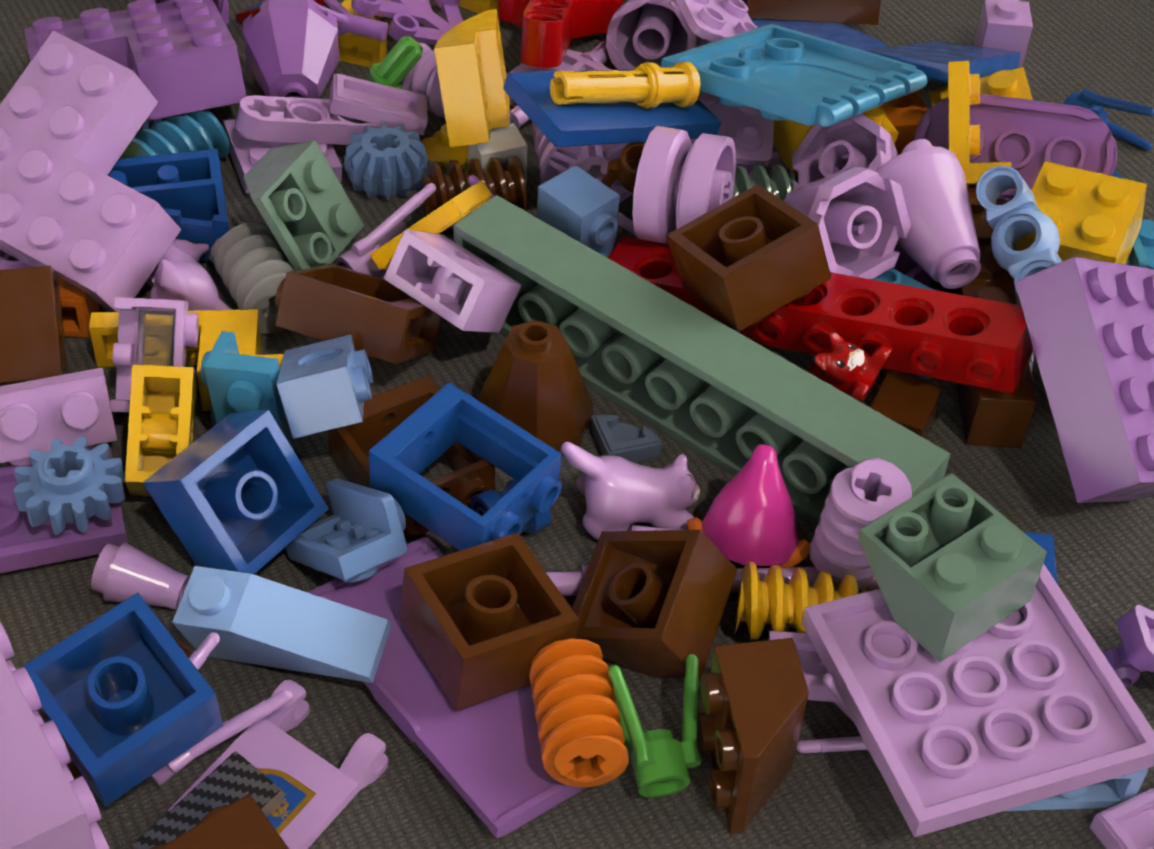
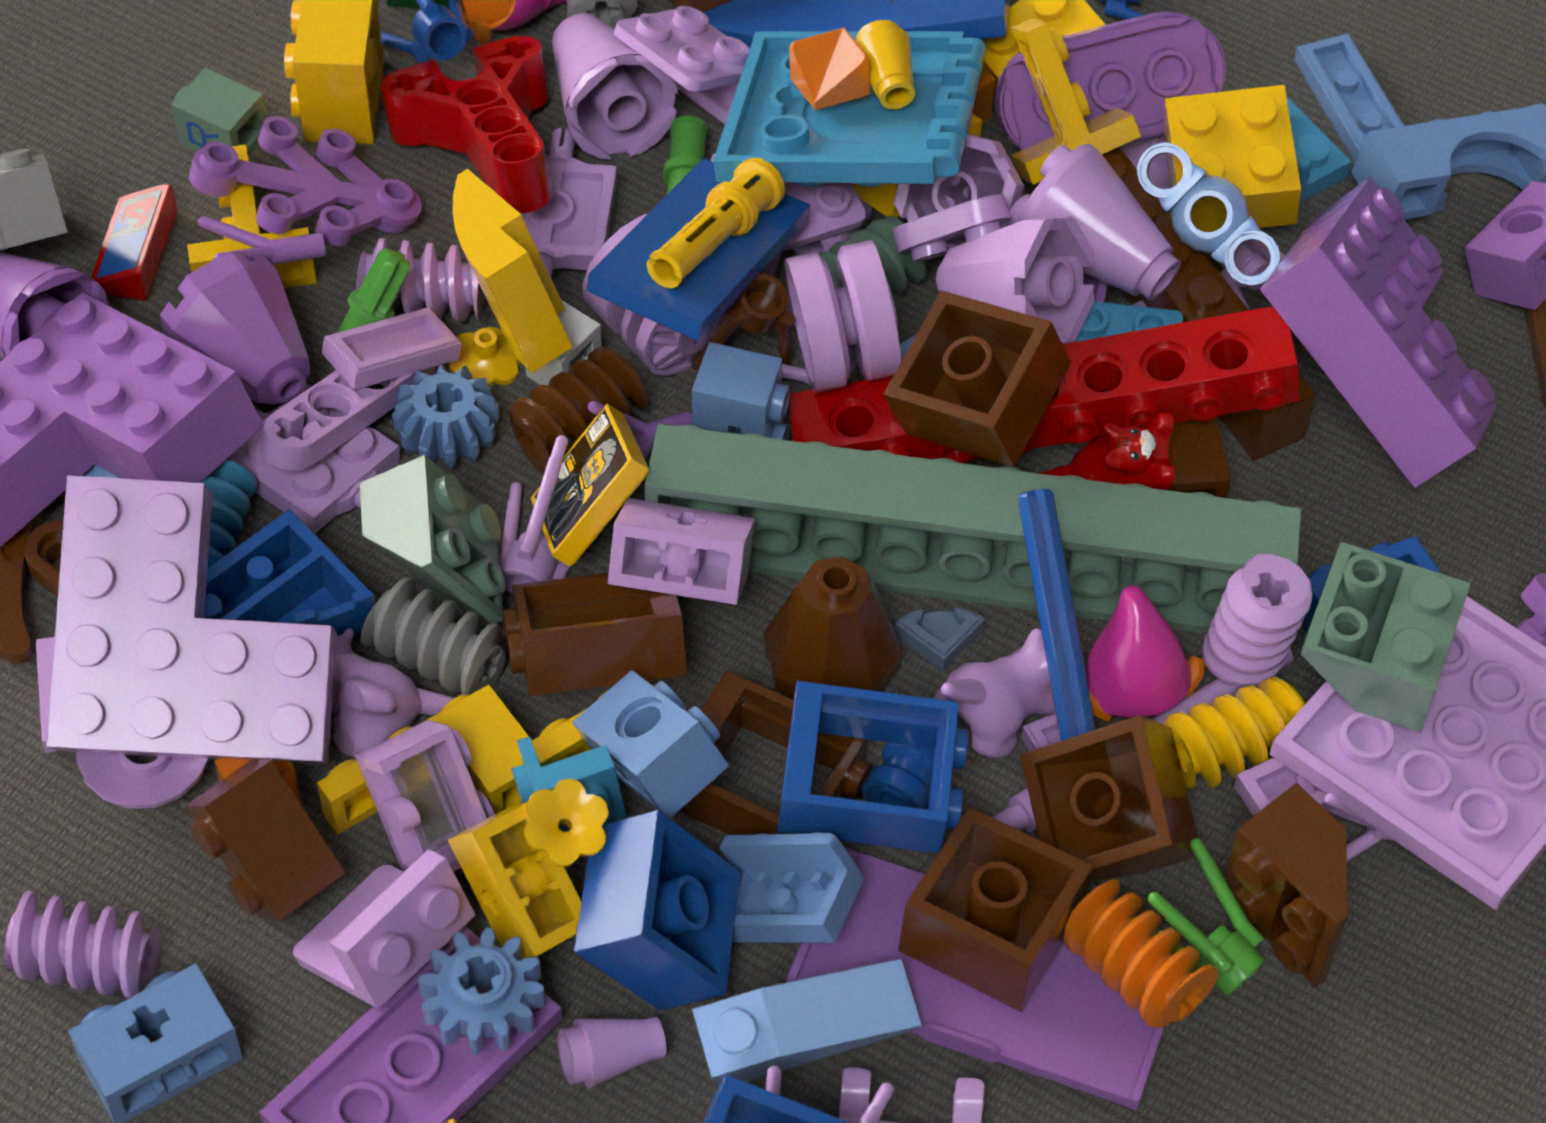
camera: 30 degrees left, 10 degrees up
(205, 393) = (571, 807): none -> yellow plant
(698, 433) = (1056, 613): none -> blue axle
(791, 40) = (829, 68): none -> orange slope
(800, 169) = (929, 235): none -> lavender plate
(836, 51) = (889, 62): none -> yellow cone

